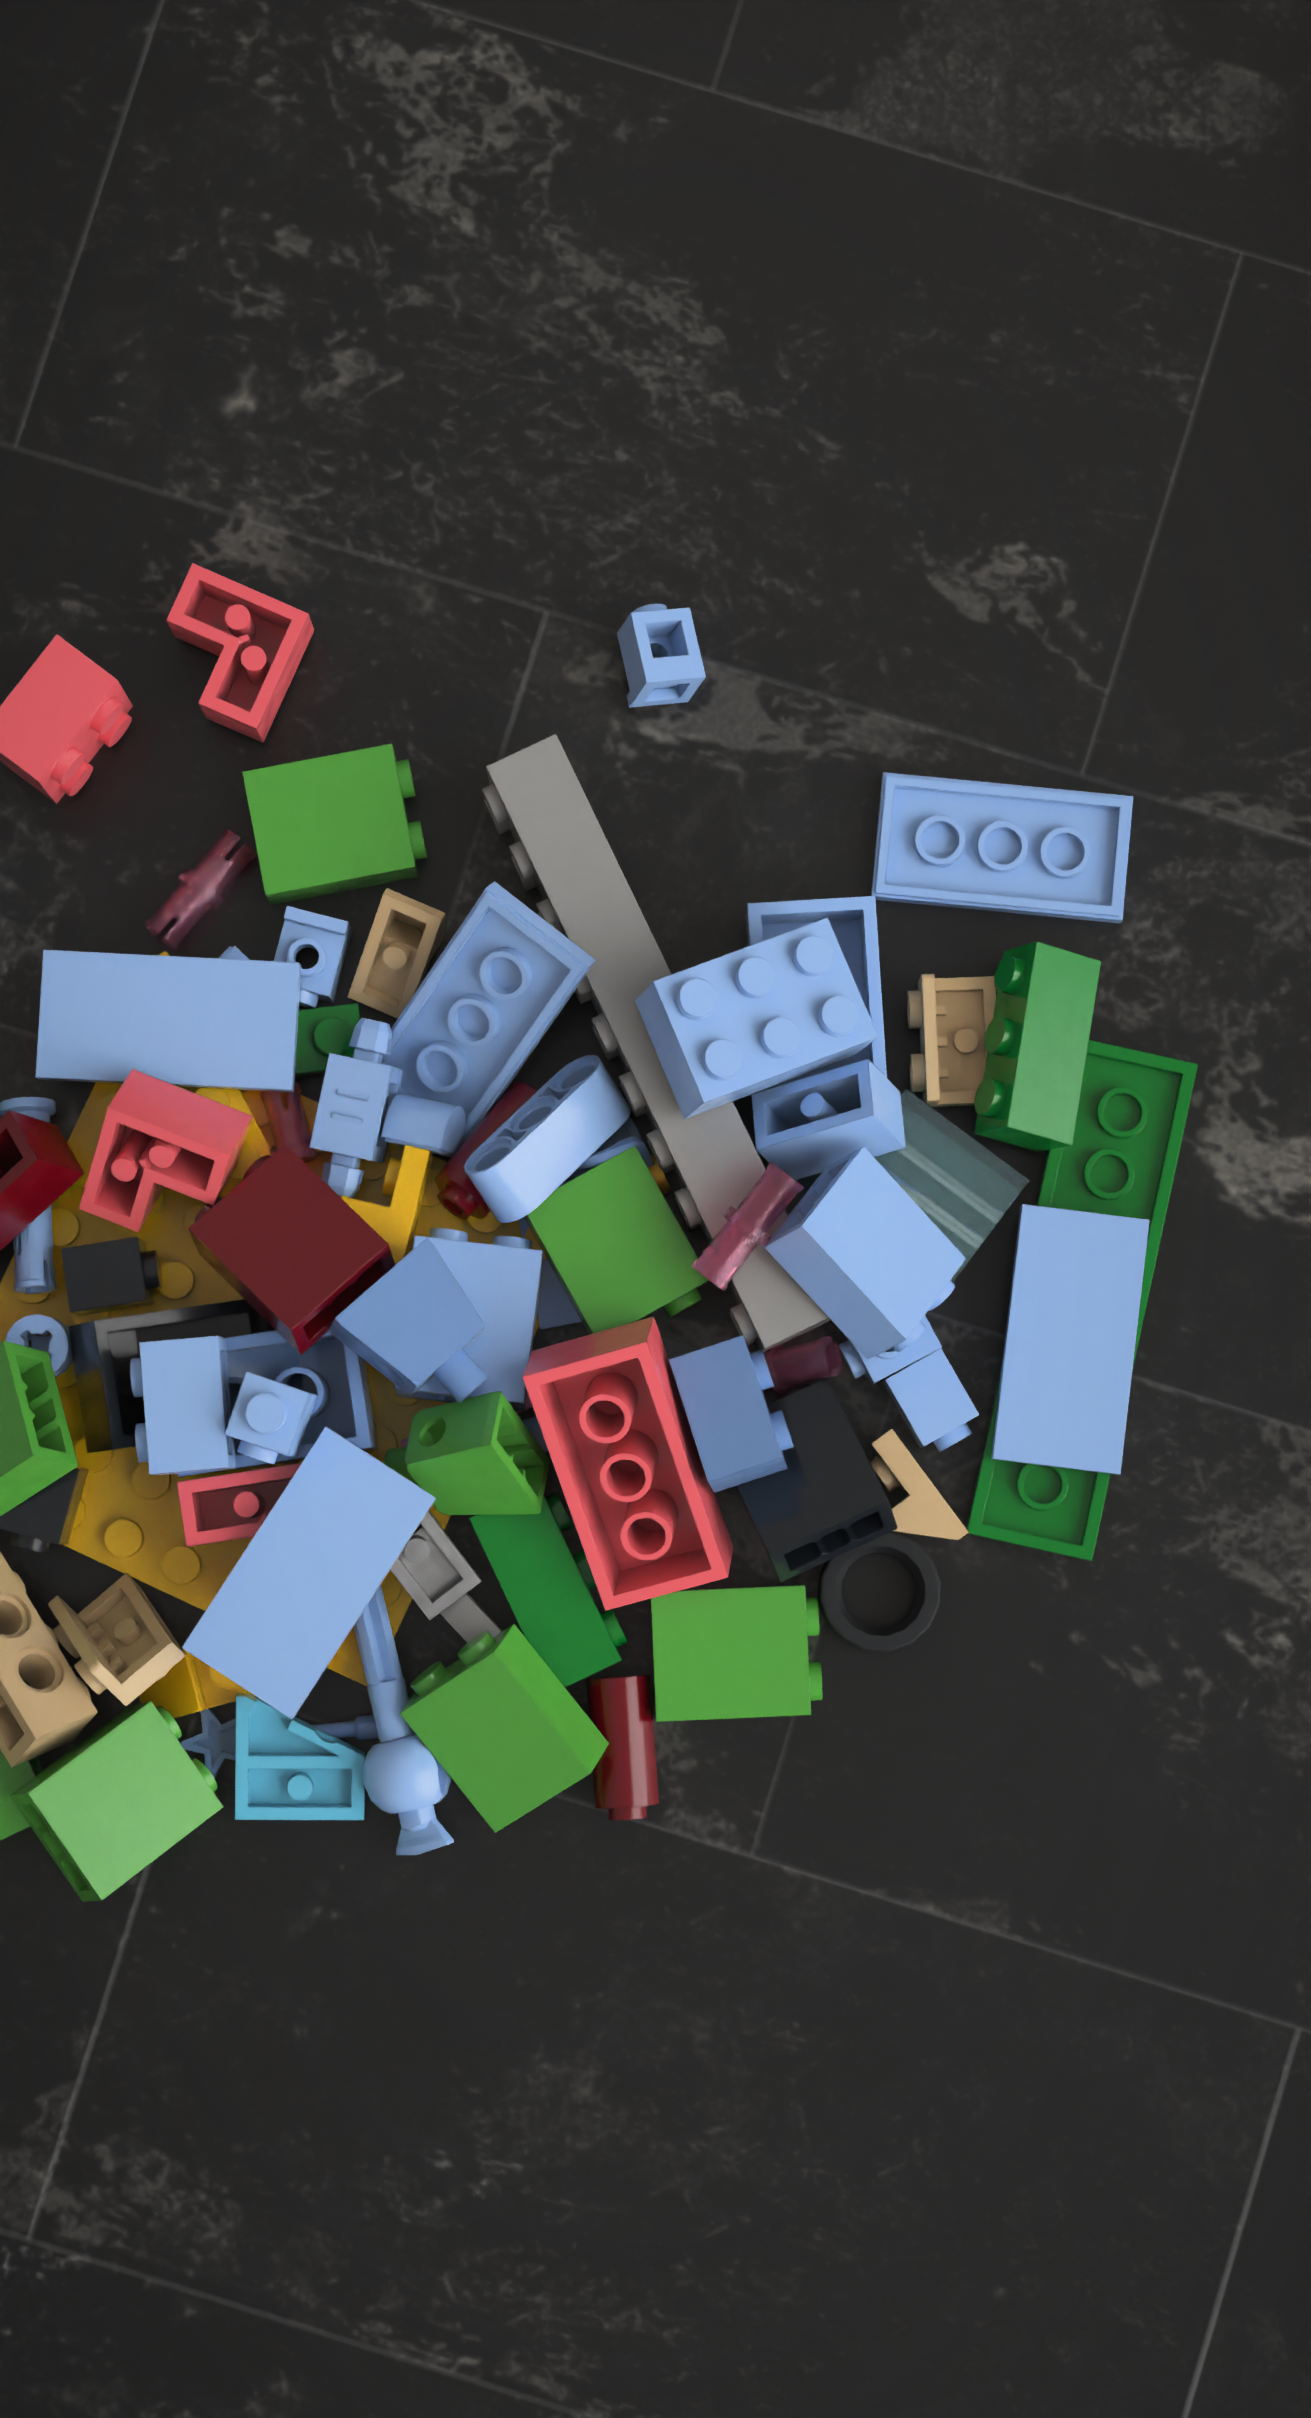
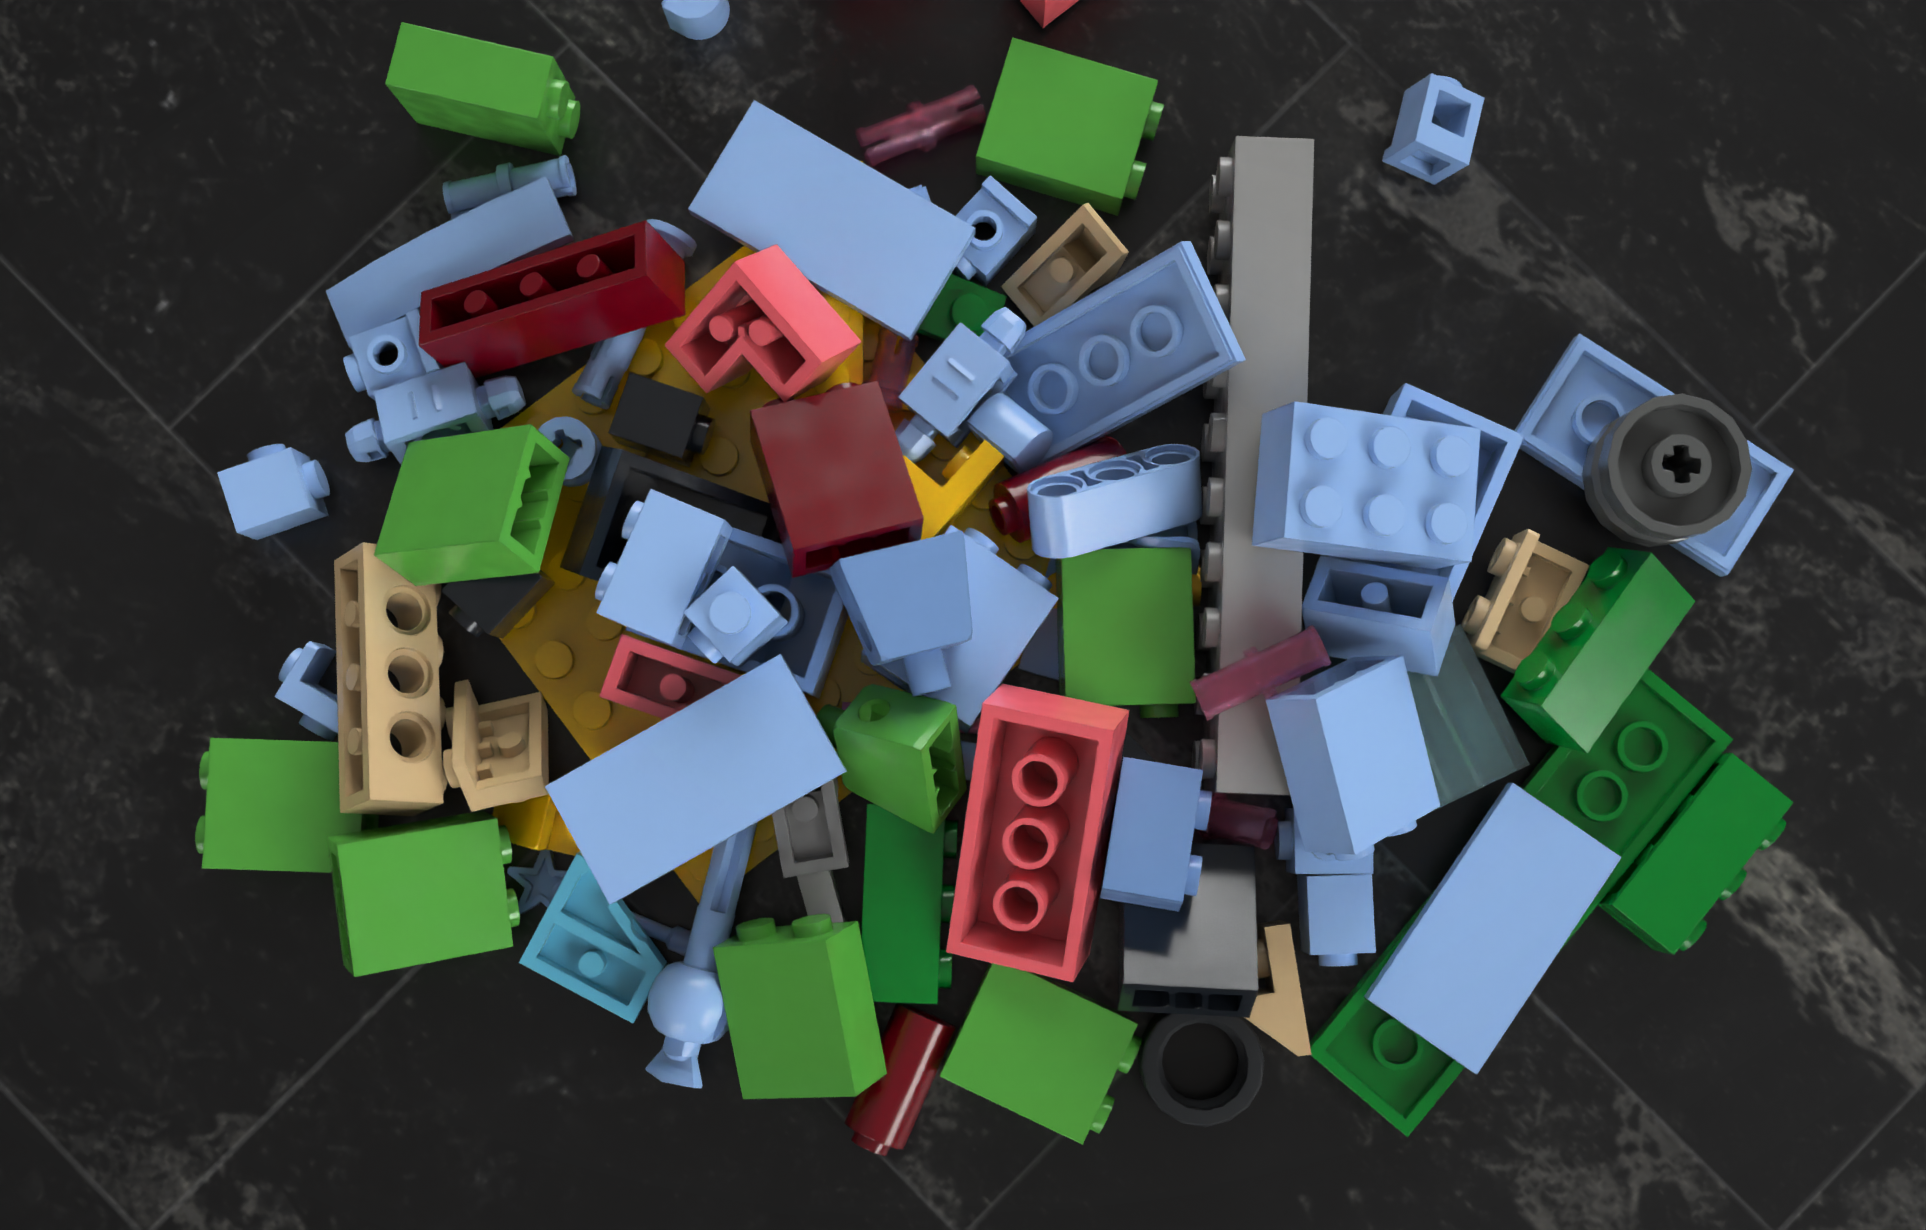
camera: 30 degrees right, 0 degrees up
(1023, 824) = (1702, 480): none -> dark grey wheel
(1218, 1183) = (1698, 856): none -> green brick

